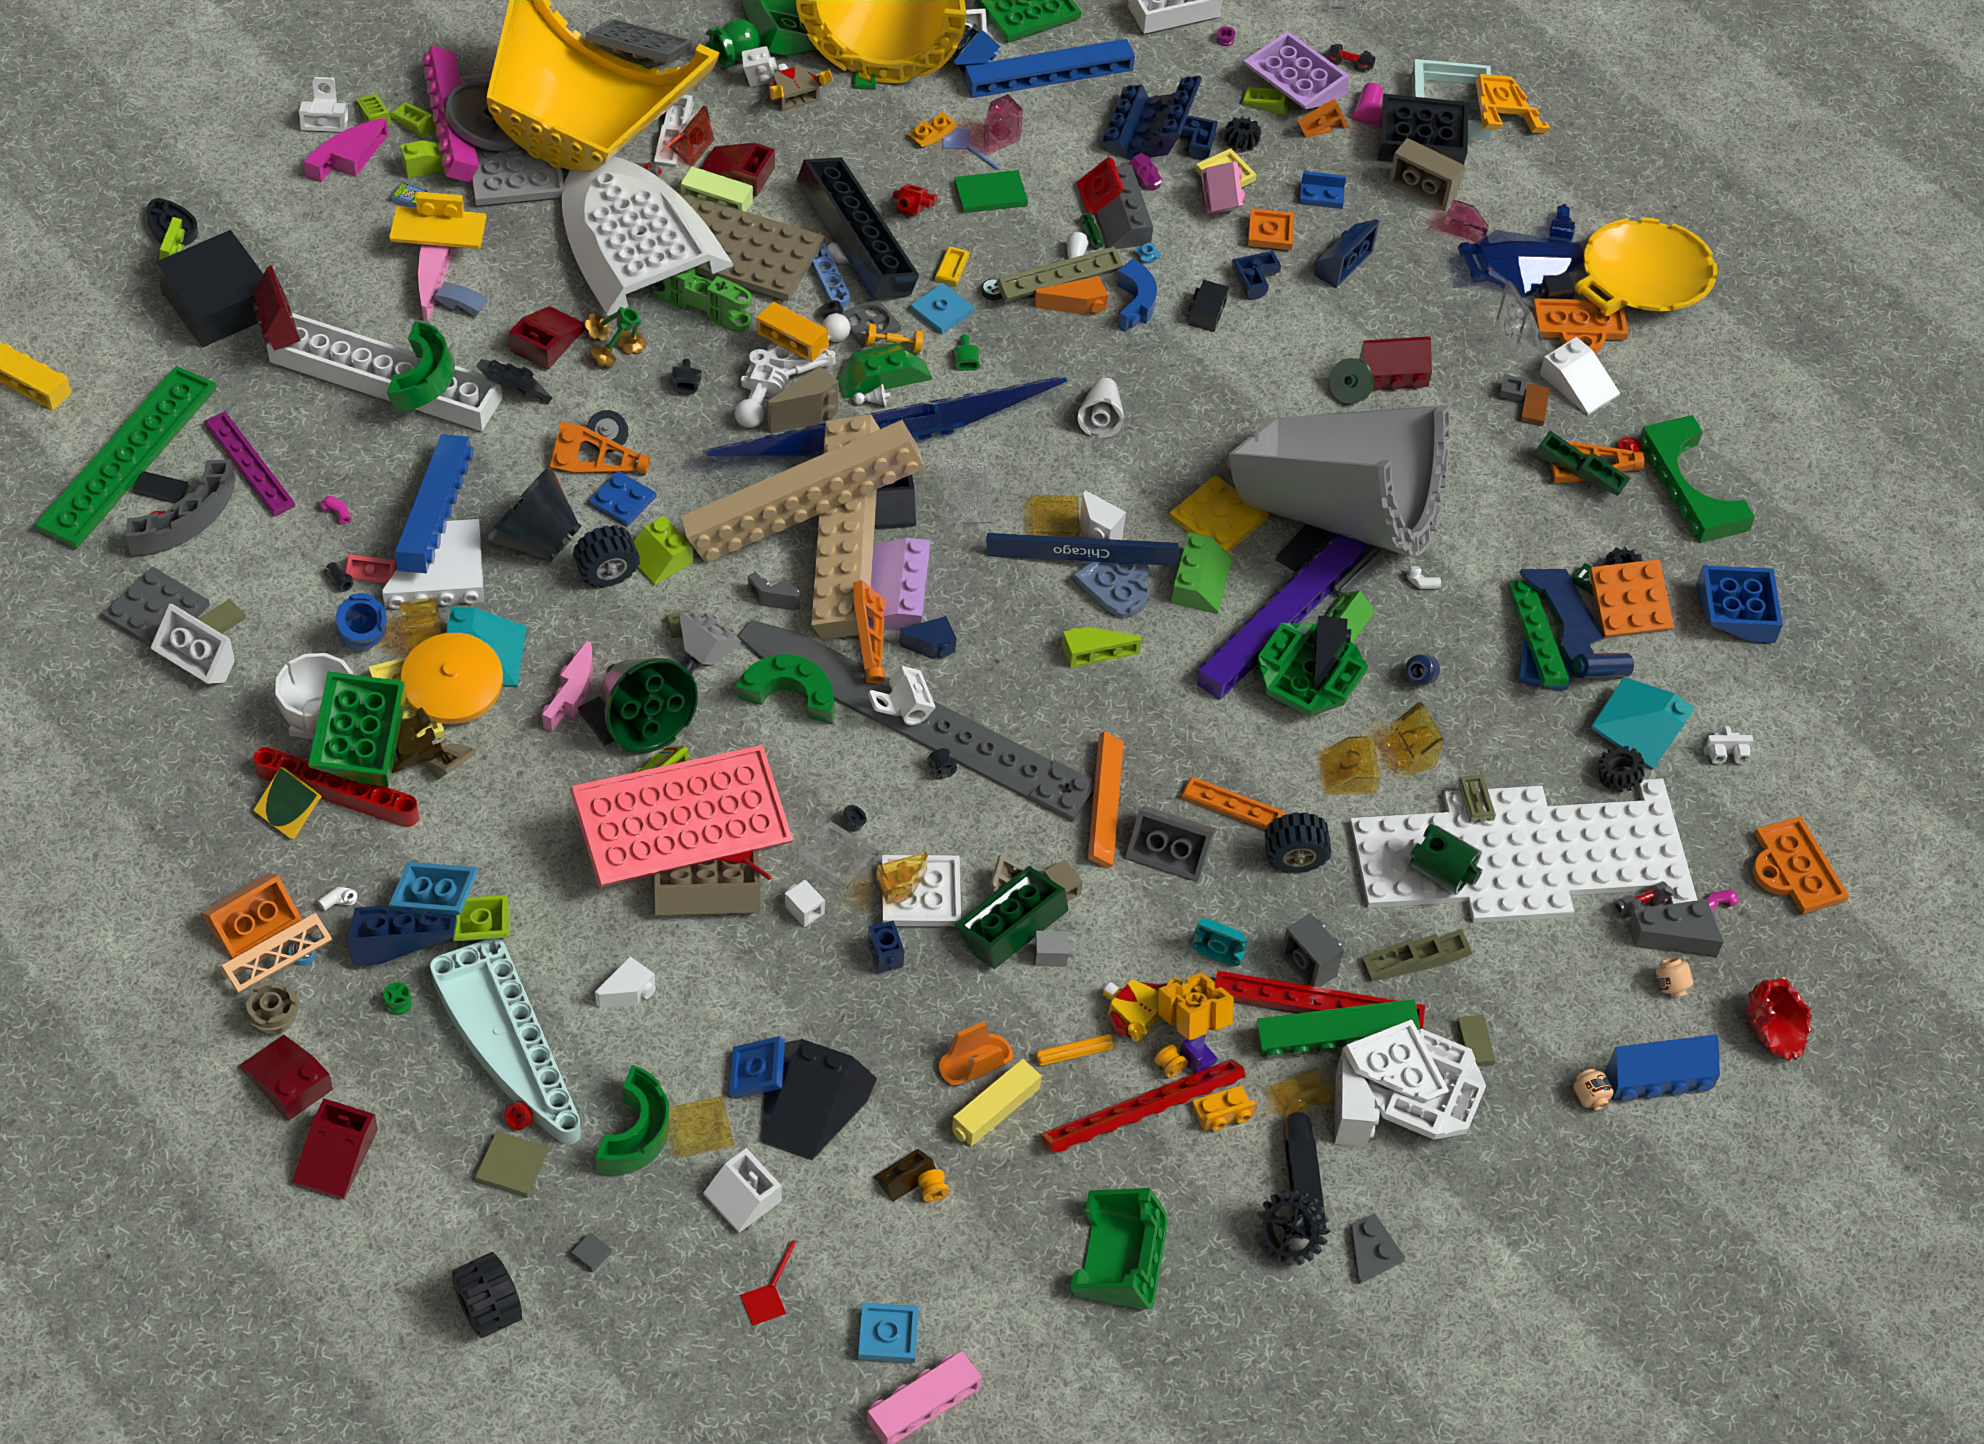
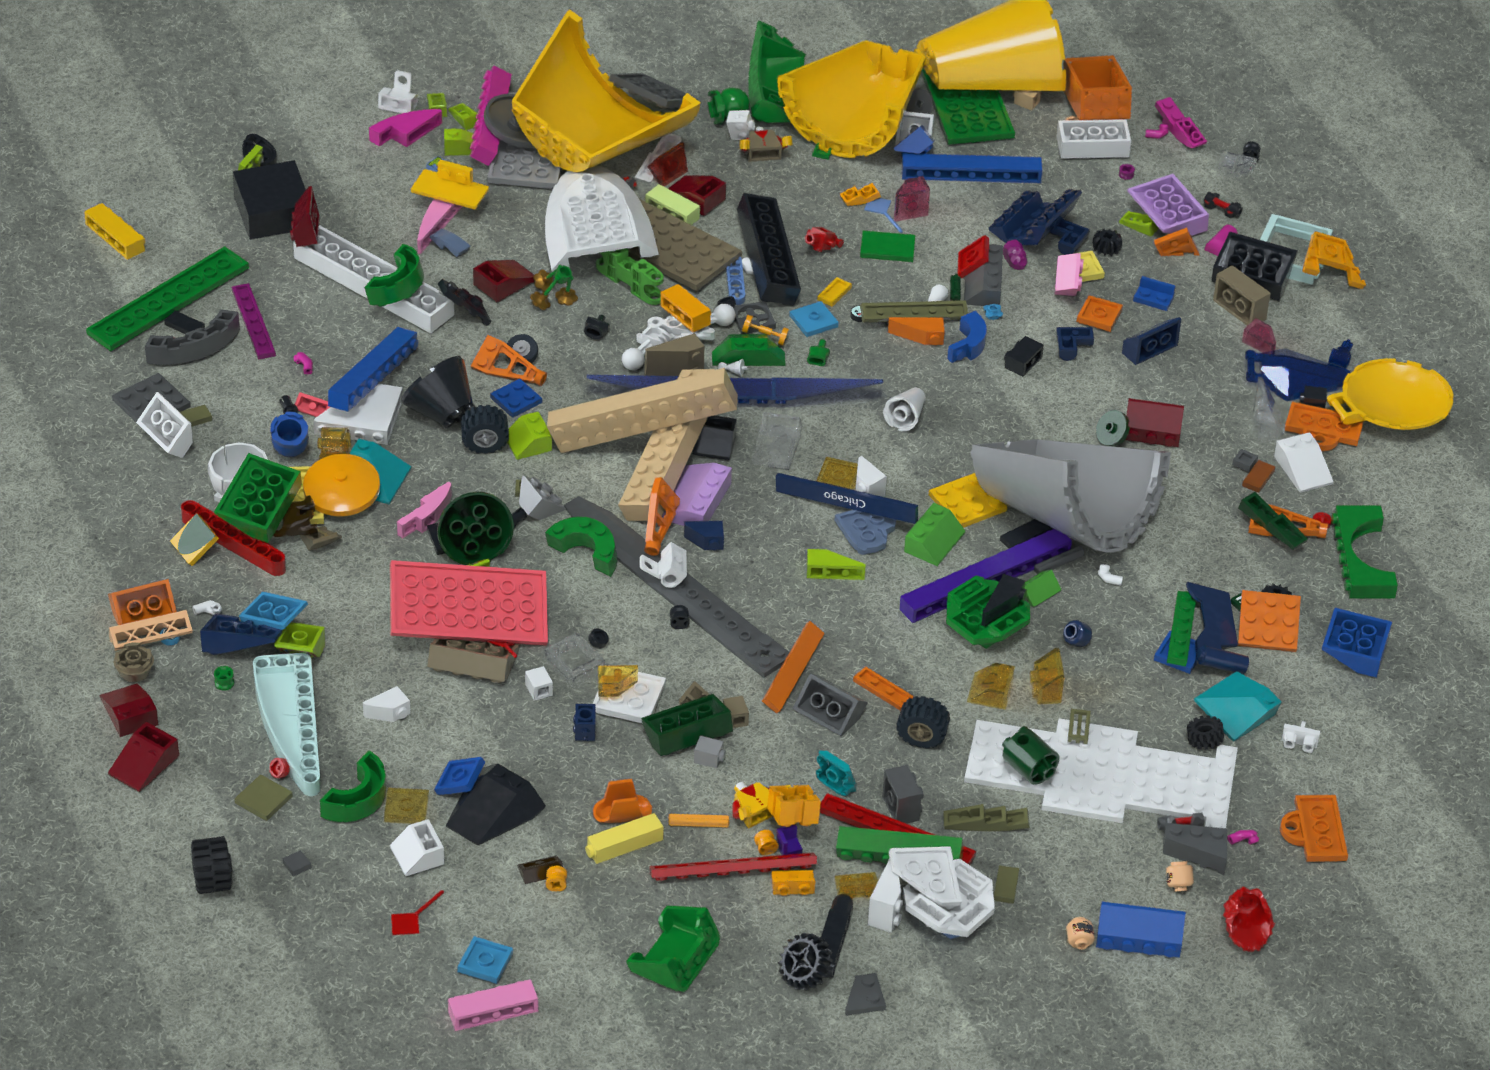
camera: 20 degrees right, 10 degrees down
(780, 595) = (602, 483): dark grey slope -> none

